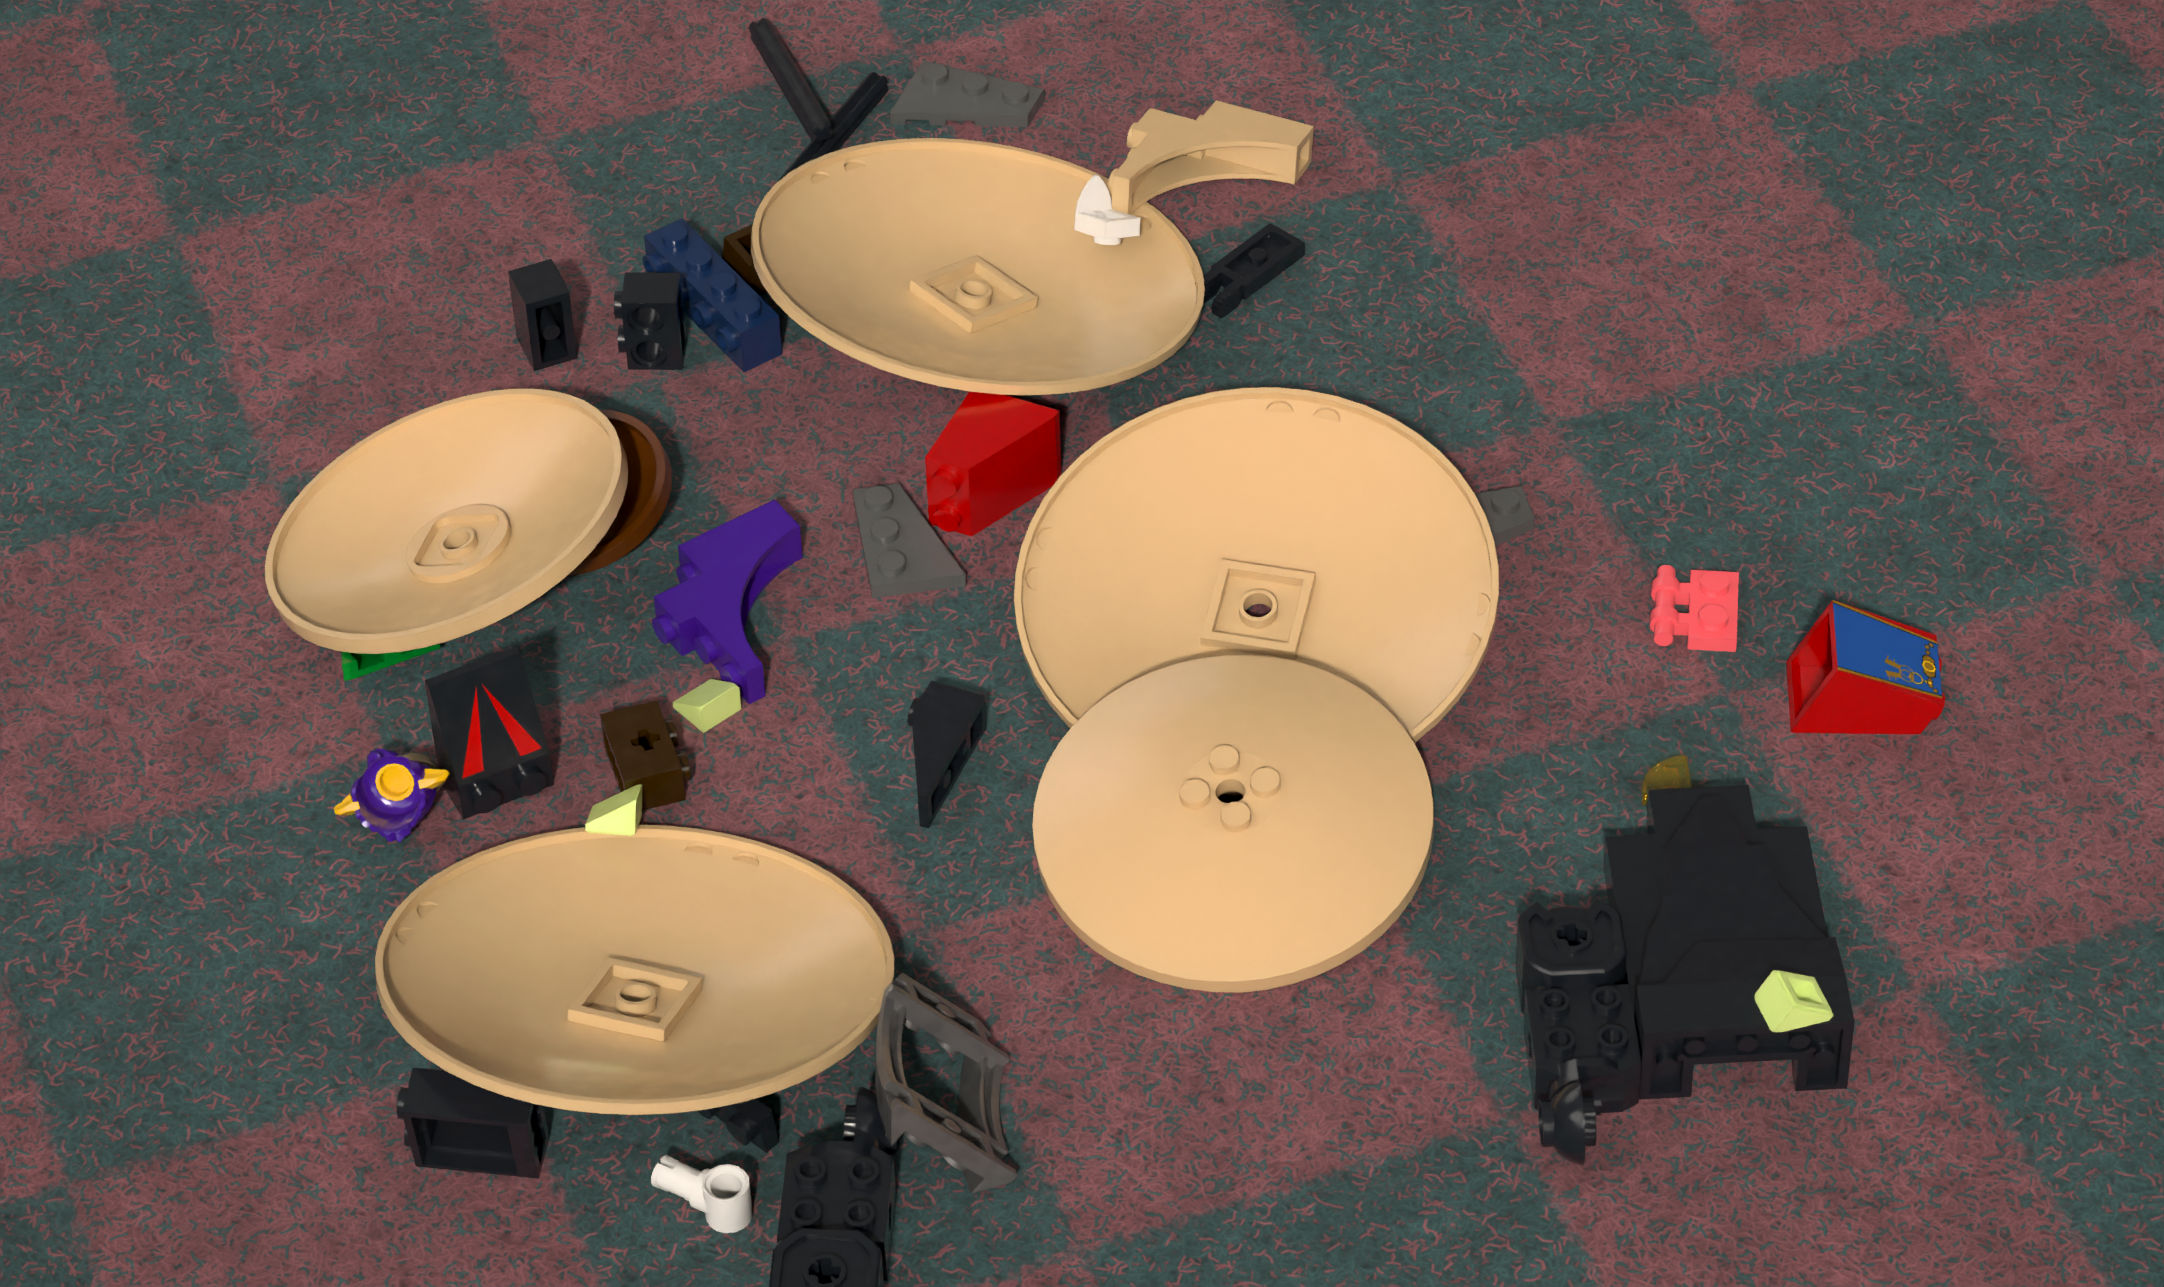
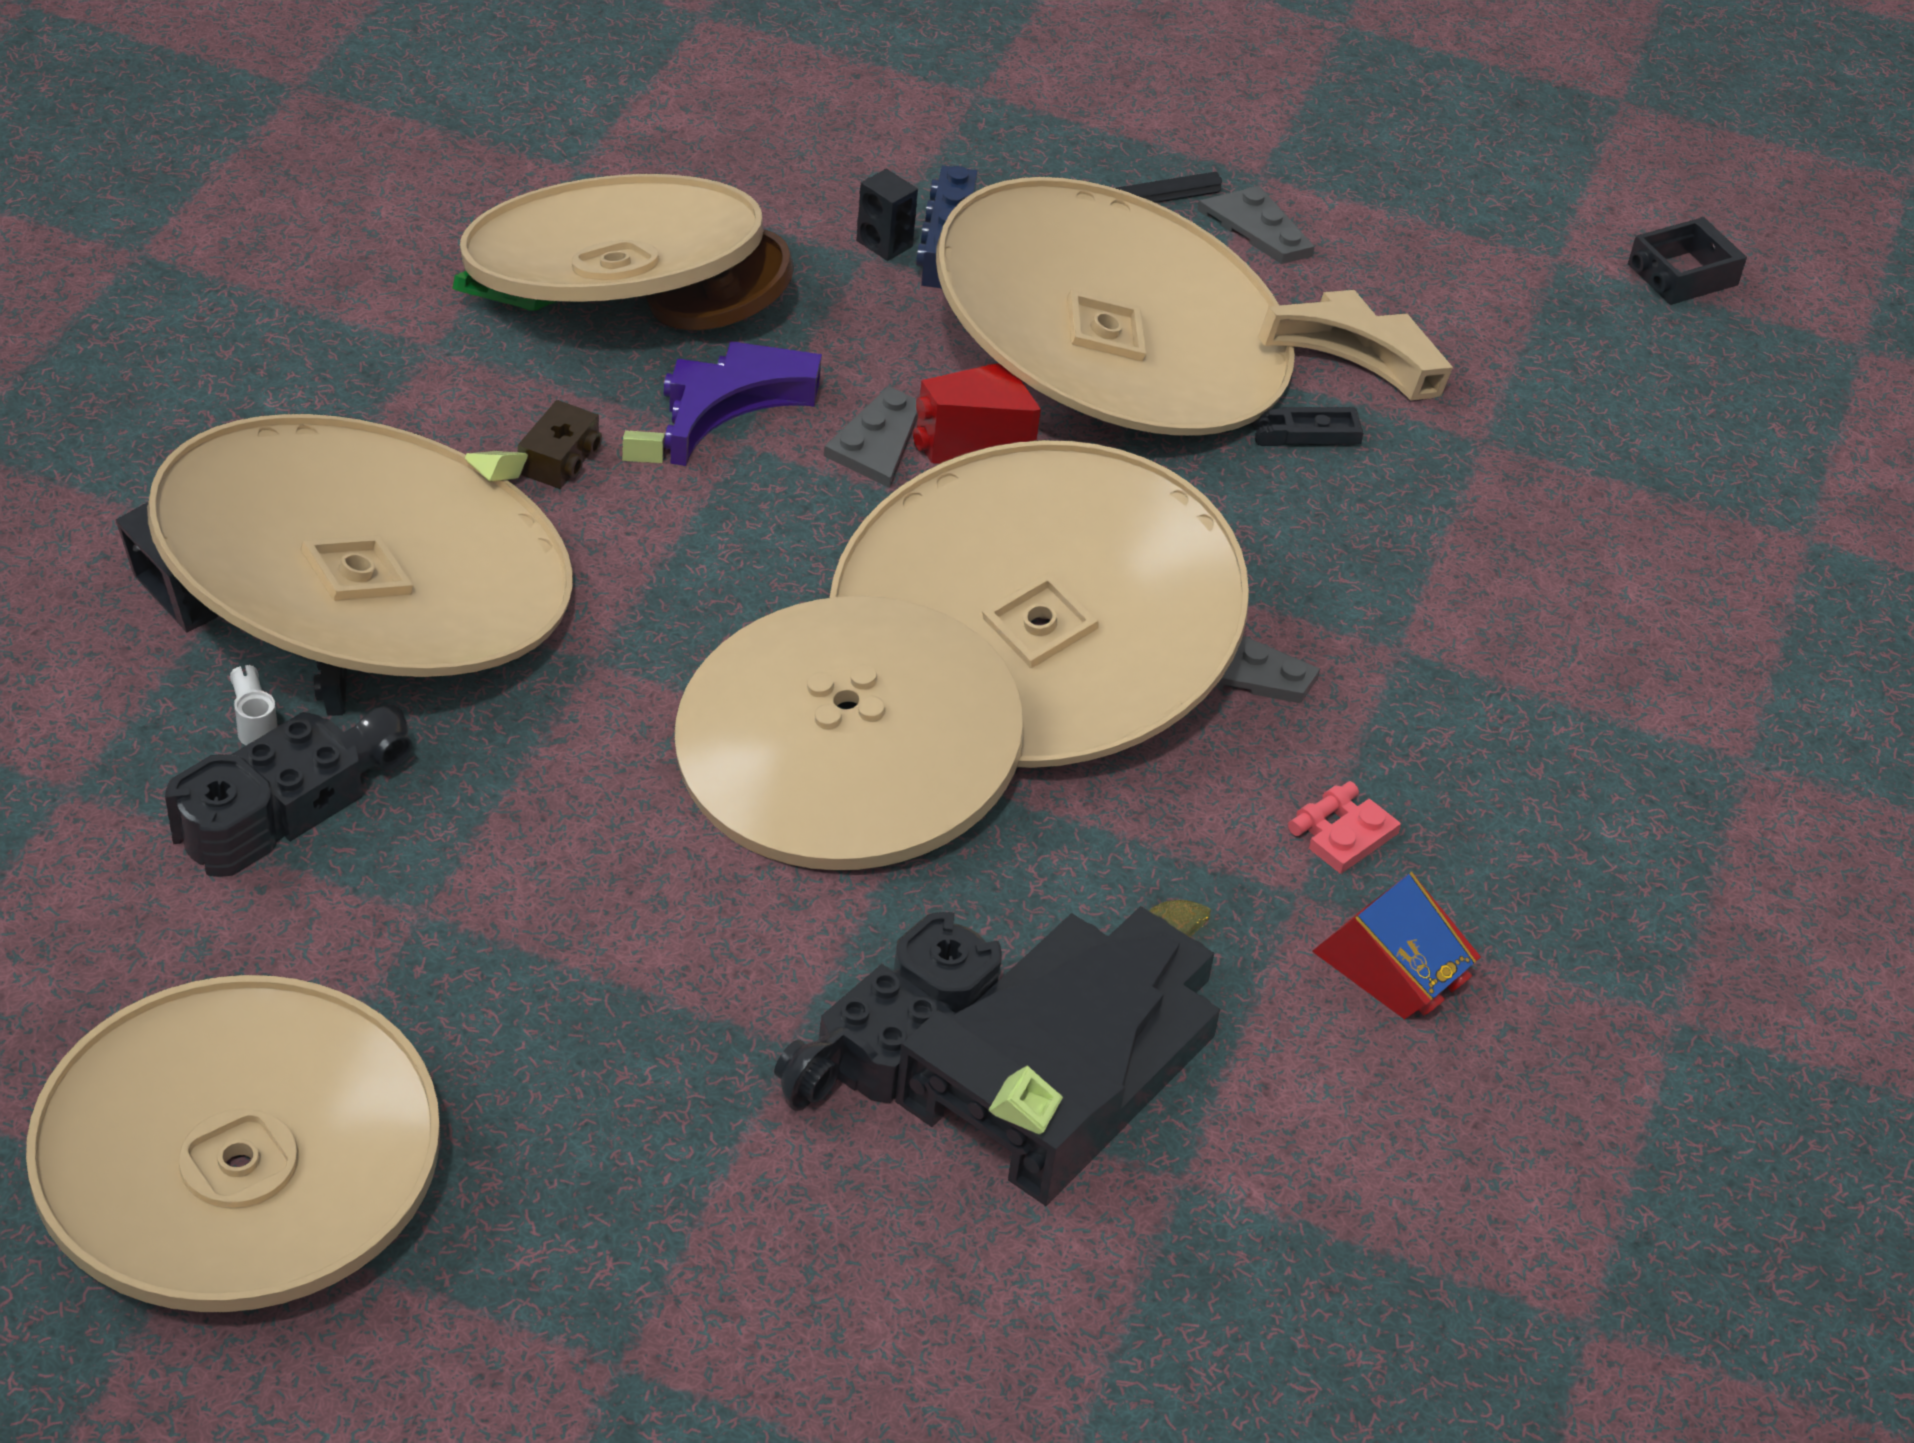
camera: 35 degrees right, 0 degrees up
(393, 792) = (392, 364): dark purple hair -> none
(488, 733) = (470, 361): black slope -> none
(542, 314) = (827, 171): black brick -> none
(790, 81) = (1158, 146): black axle -> none
(945, 733) = (735, 560): black slope -> none
(975, 1137) = (404, 764): flat silver wedge -> none
(1098, 219) = (1242, 330): white plate -> none

